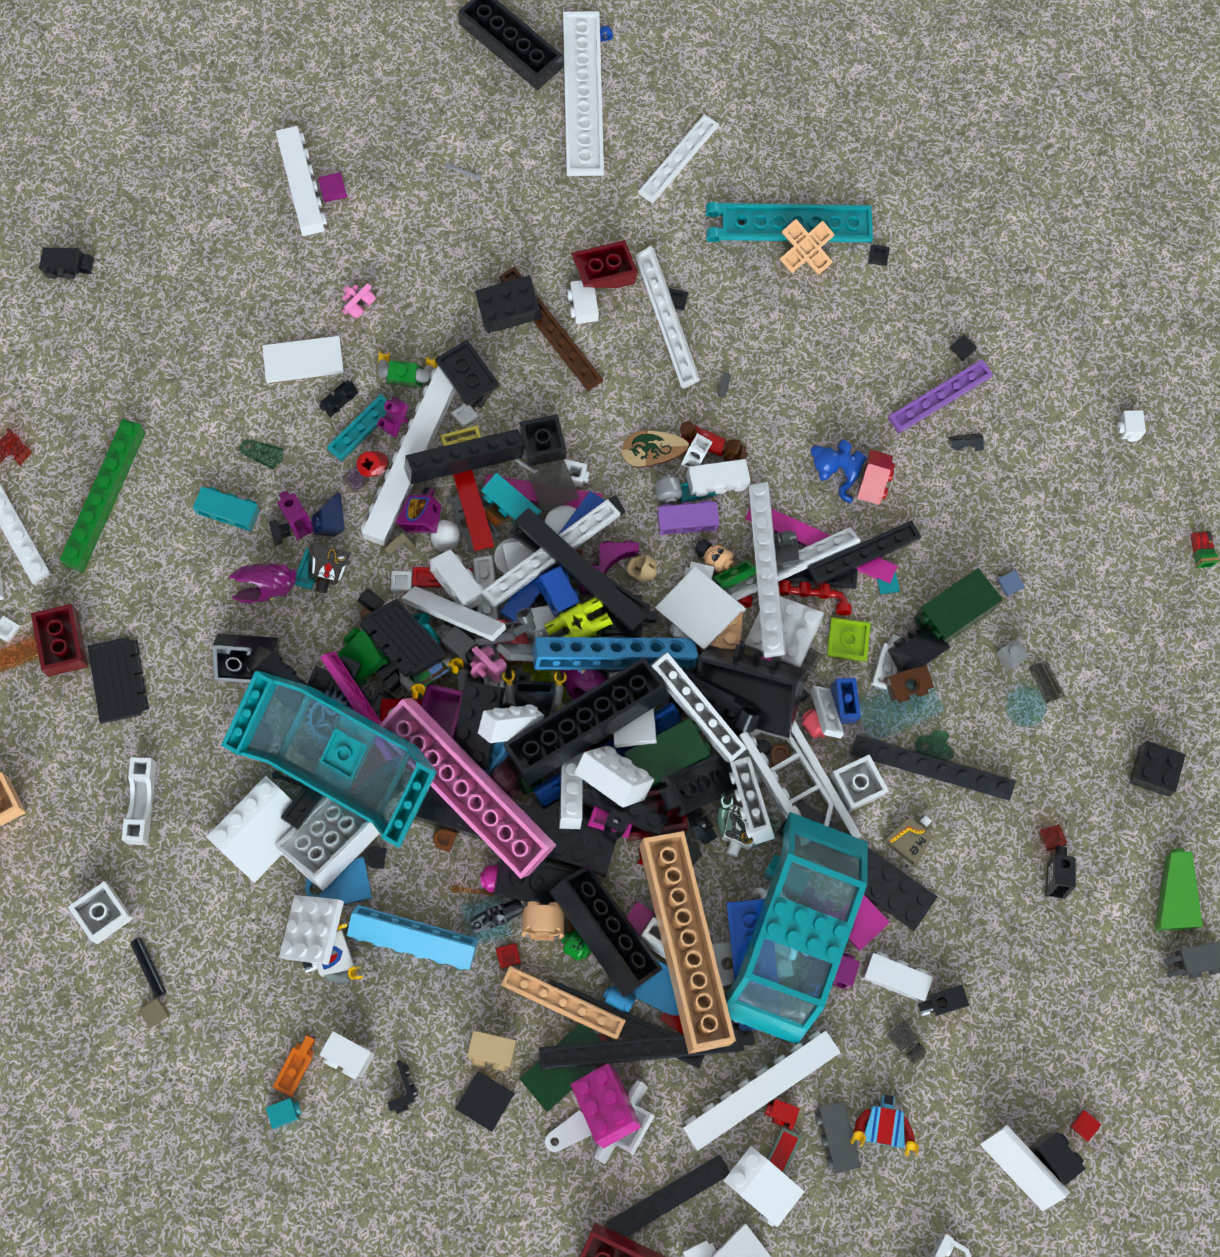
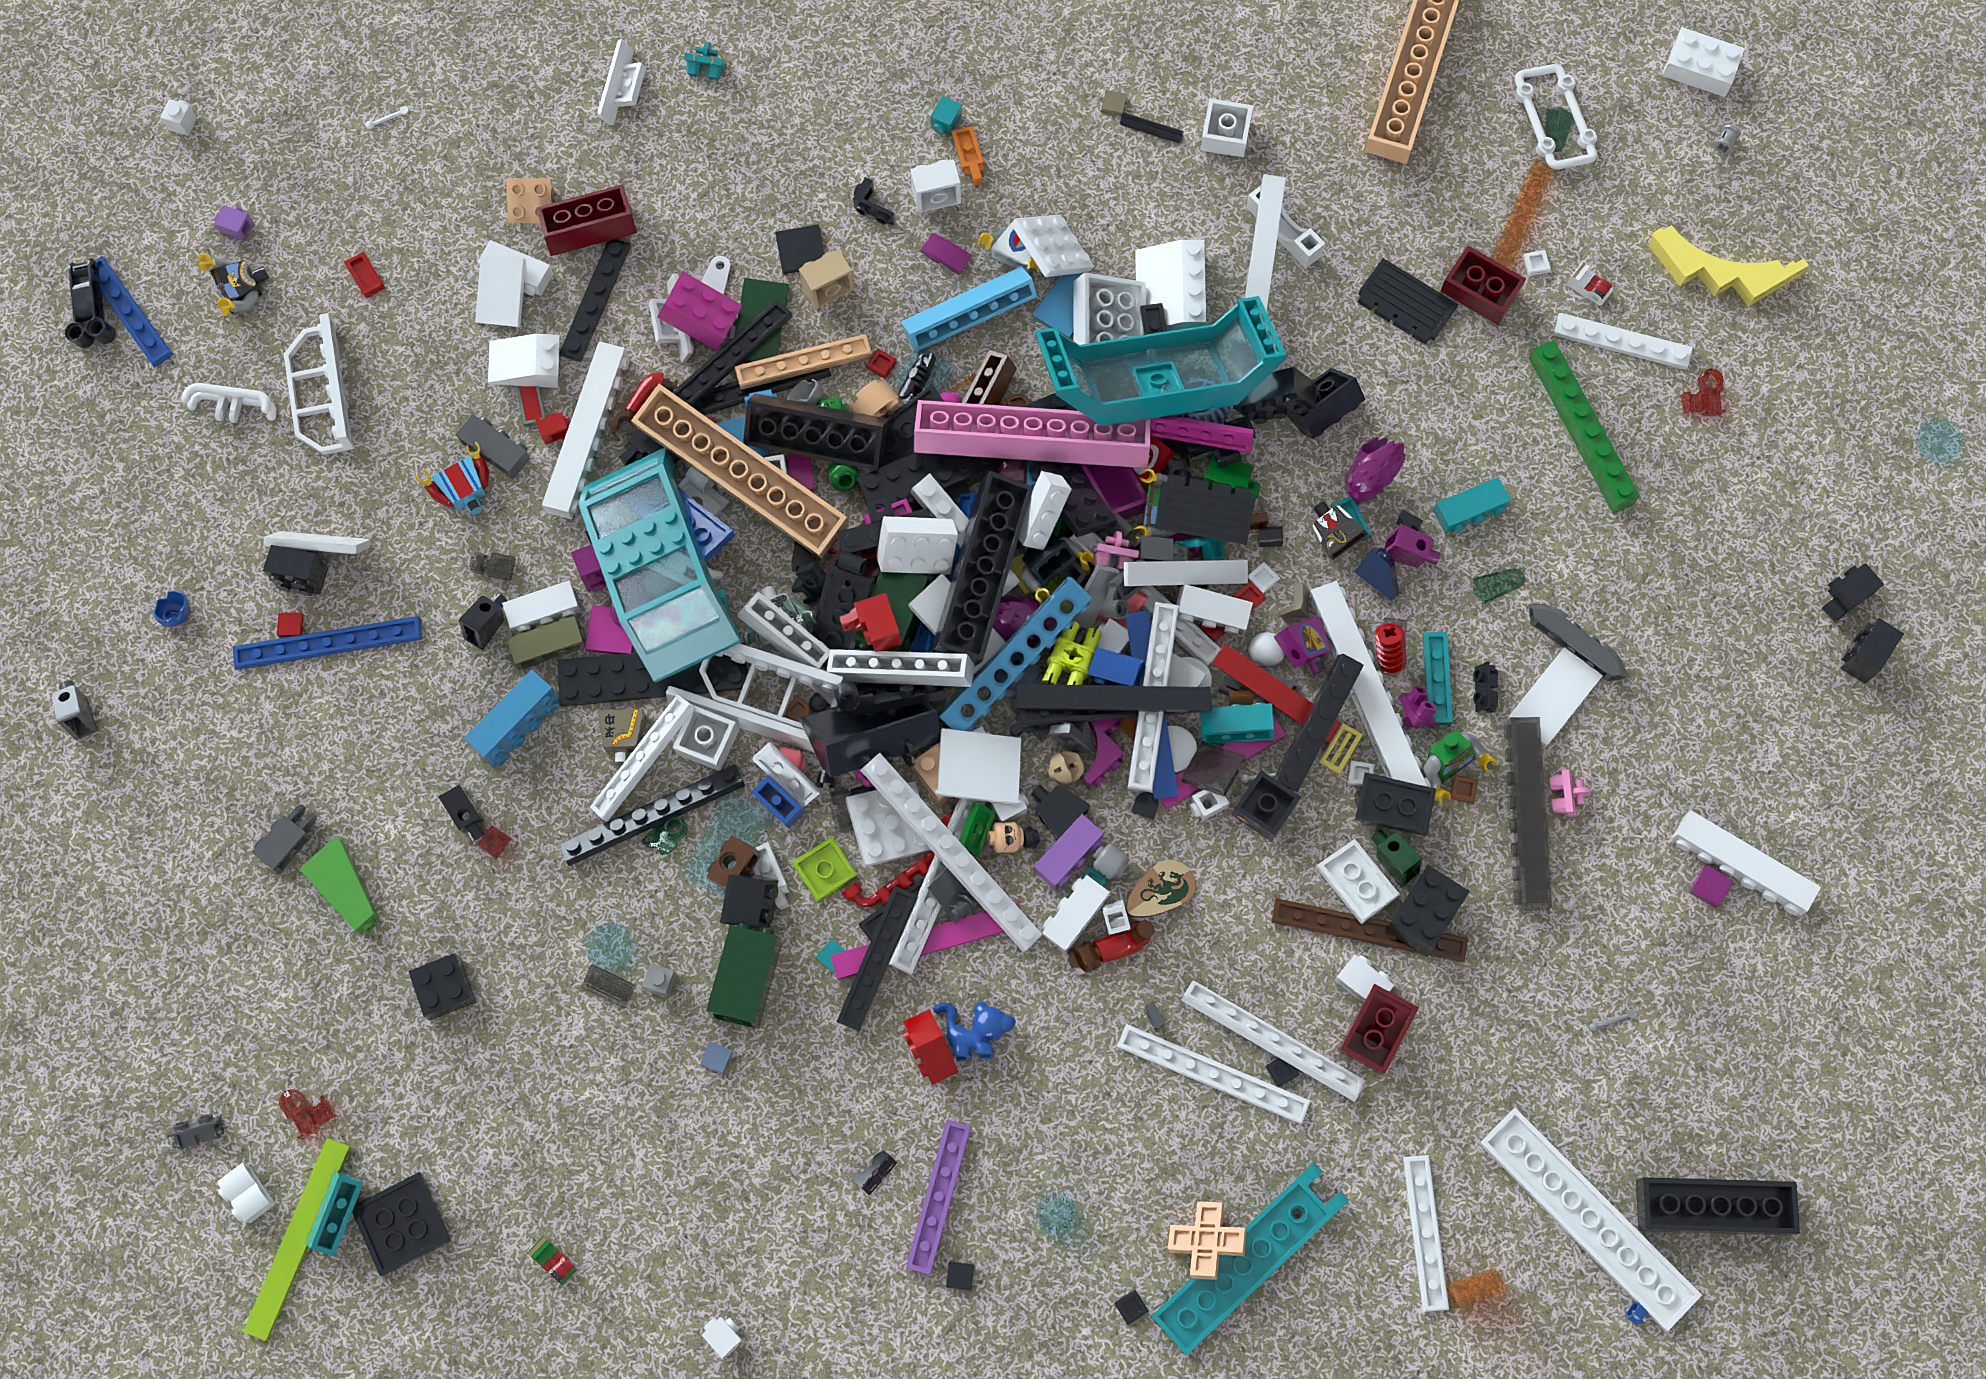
camera: 145 degrees right, 0 degrees up
(96, 219) = (1871, 650): none -> black brick
(171, 792) = (1265, 238): none -> white tile
(256, 395) = (1568, 634): none -> dark grey brick
(386, 1000) = (946, 252): none -> magenta slope
(392, 307) = (1529, 814): none -> clear smoke brick
(413, 354) = (1463, 789): none -> dark orange tile
(455, 864) = (991, 380): none -> reddish brown brick
(495, 341) = (1397, 857): none -> dark green torso
(530, 357) = (1358, 881): none -> white tile
(590, 971) = (807, 390): none -> light grey hair
(615, 886) = (842, 476): none -> green head
(622, 578) = (1074, 736): none -> dark grey slope
(670, 547) = (1058, 809): none -> black torso
(680, 109) = (1475, 1288): none -> clear orange brick
(686, 745) = (876, 621): none -> red hinge
(689, 1082) = (639, 397): none -> piece
(718, 331) = (1213, 1074): none -> white tile
(872, 331) = (1062, 1207): none -> clear light blue gear
(911, 805) = (642, 757): none -> white tile
(913, 948) = (546, 642): none -> olive brick
(981, 906) = (513, 719): none -> dark azure brick
(1068, 1088) = (327, 643): none -> blue tile
(1173, 1208) = (173, 602): none -> blue hair

